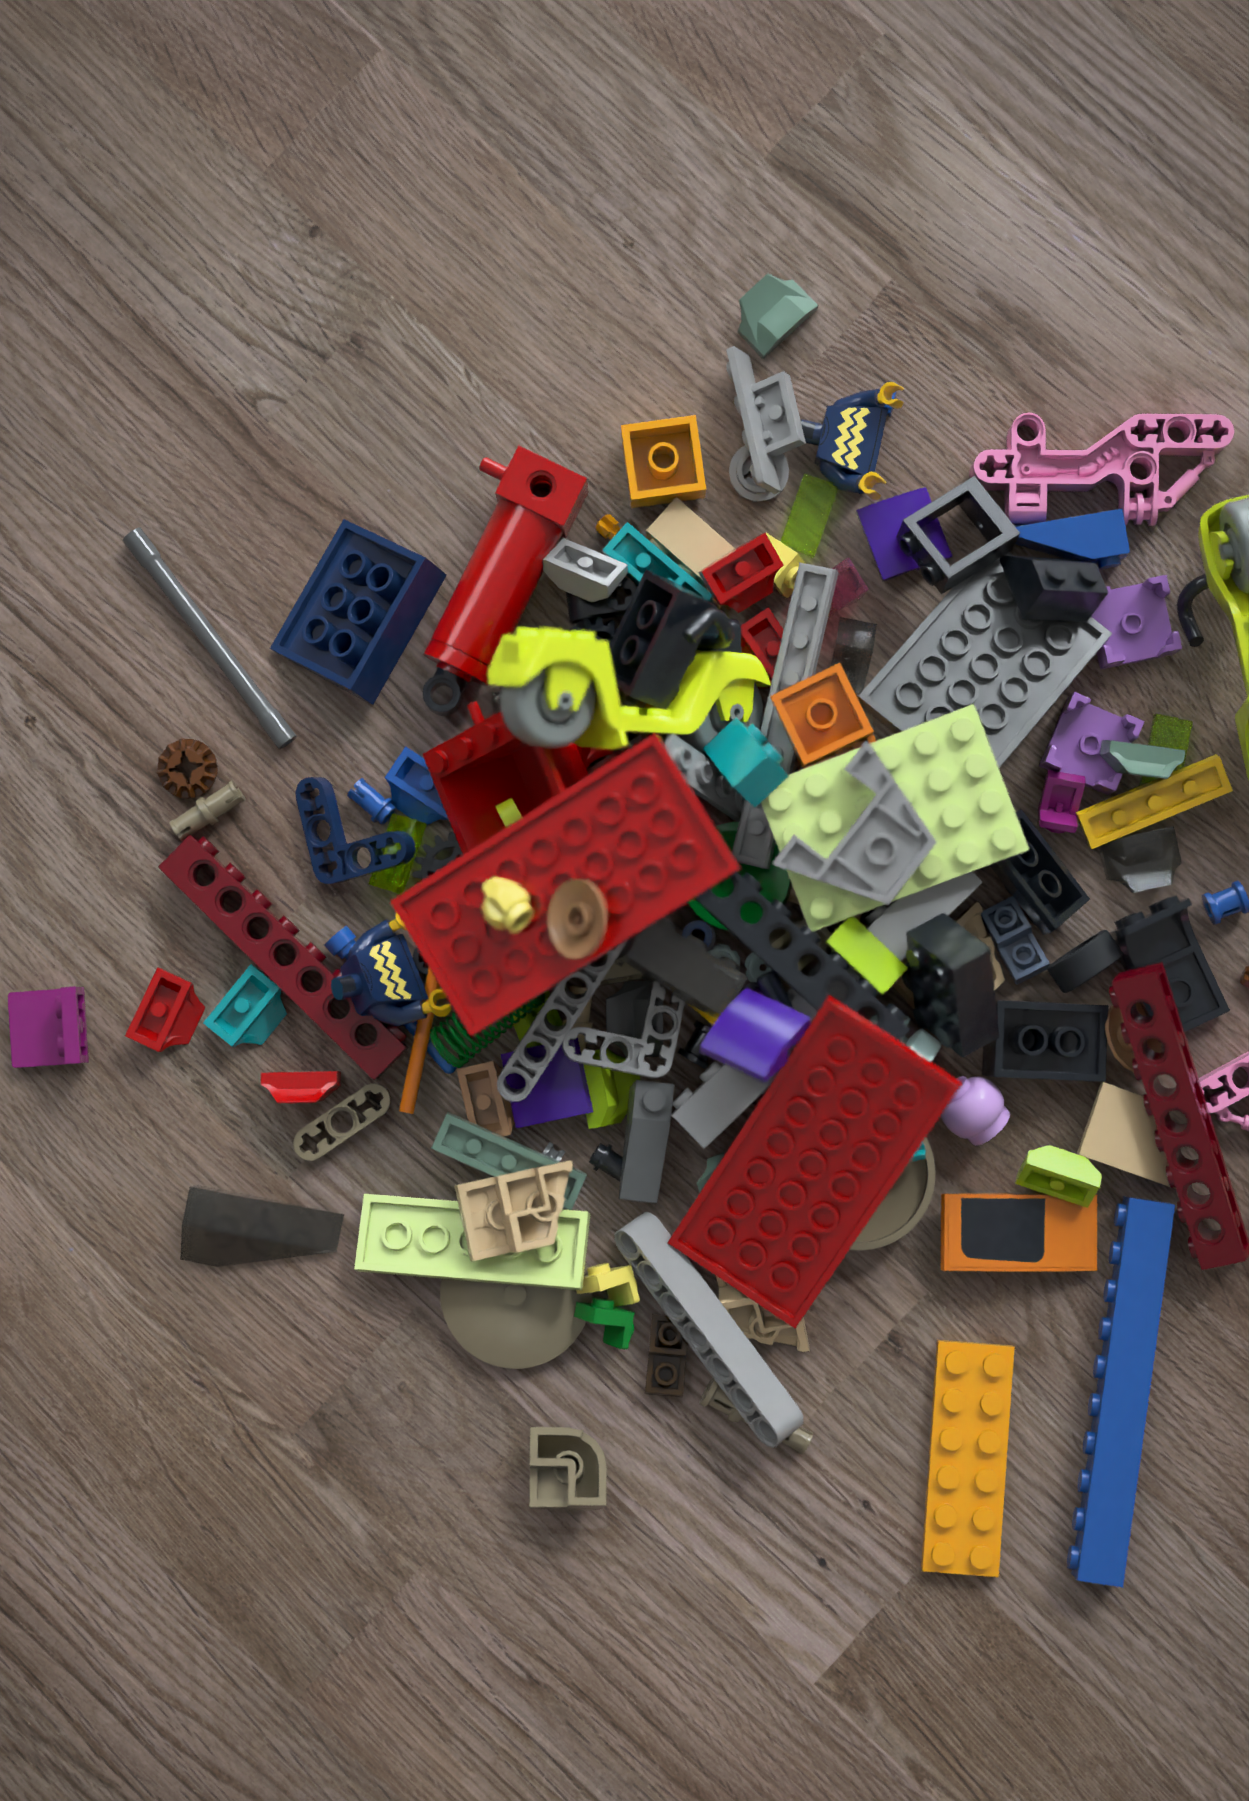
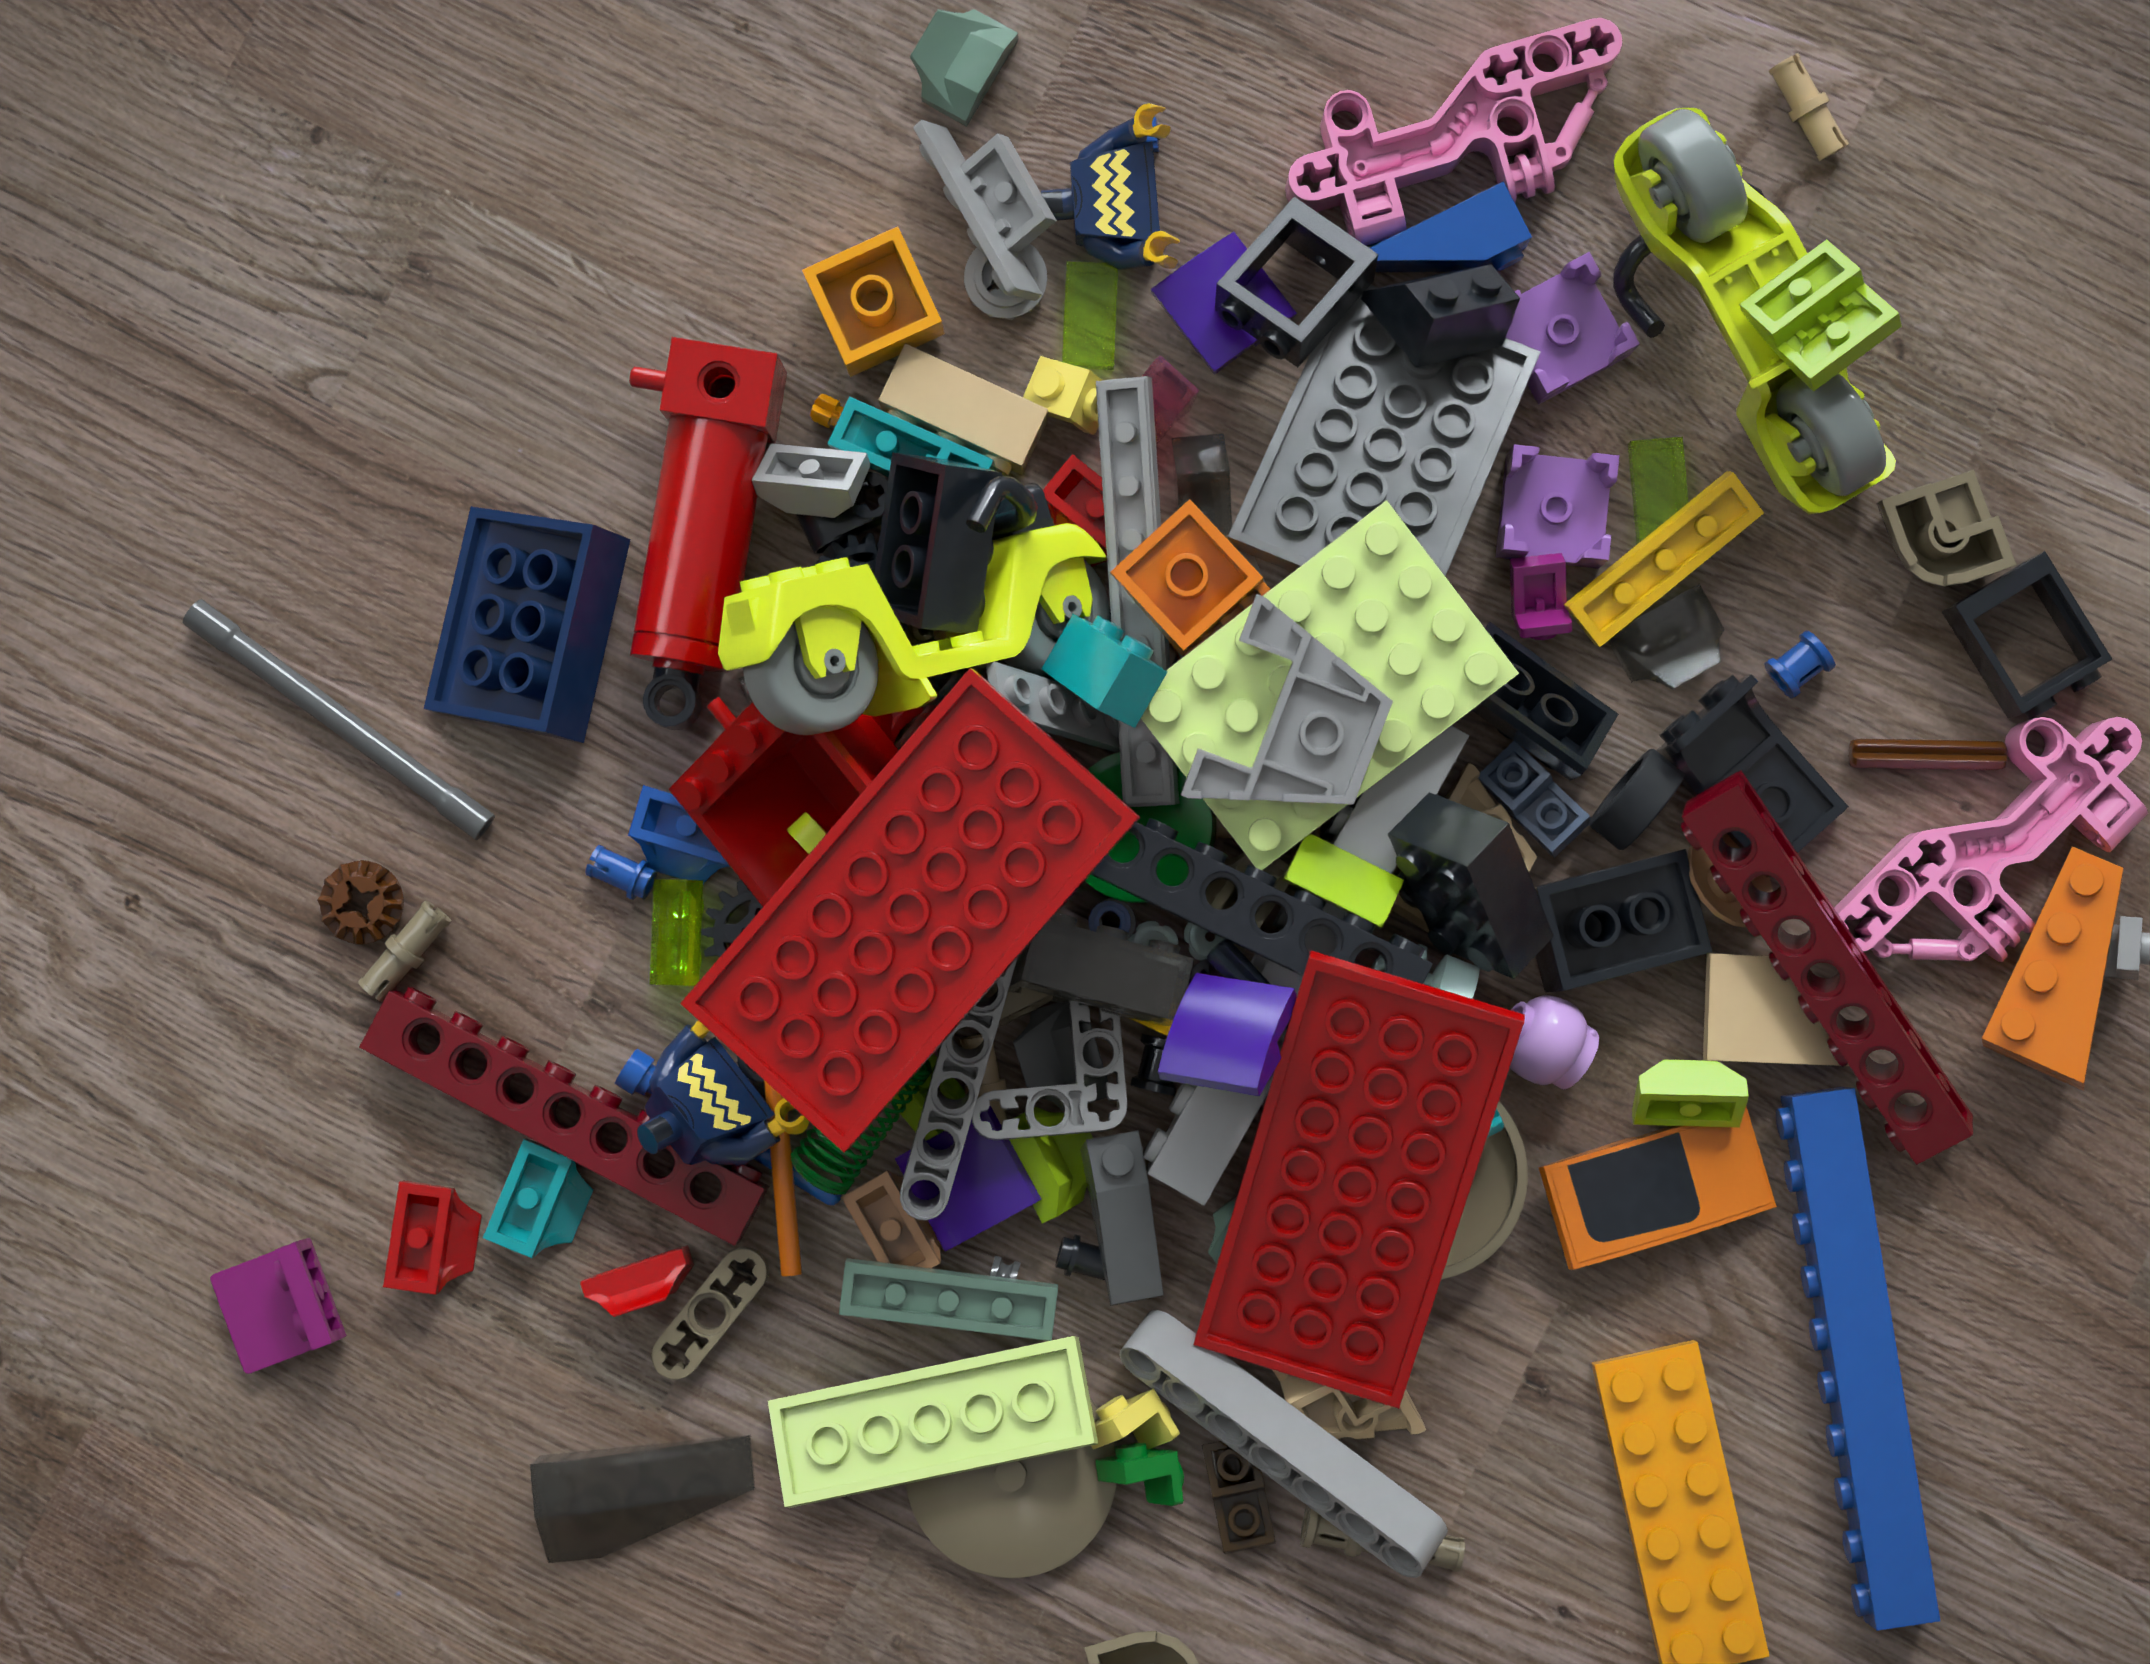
camera: 15 degrees left, 0 degrees up
(343, 854) = (603, 953): dark blue beam -> none
(506, 905) = (837, 962): light yellow rock -> none
(513, 1210) = (973, 1365): tan slope -> none
(577, 918) = (939, 952): medium nougat dish -> none
(743, 574) = (1026, 419): red slope -> none
(1141, 759) = (1629, 506): sand green slope -> none

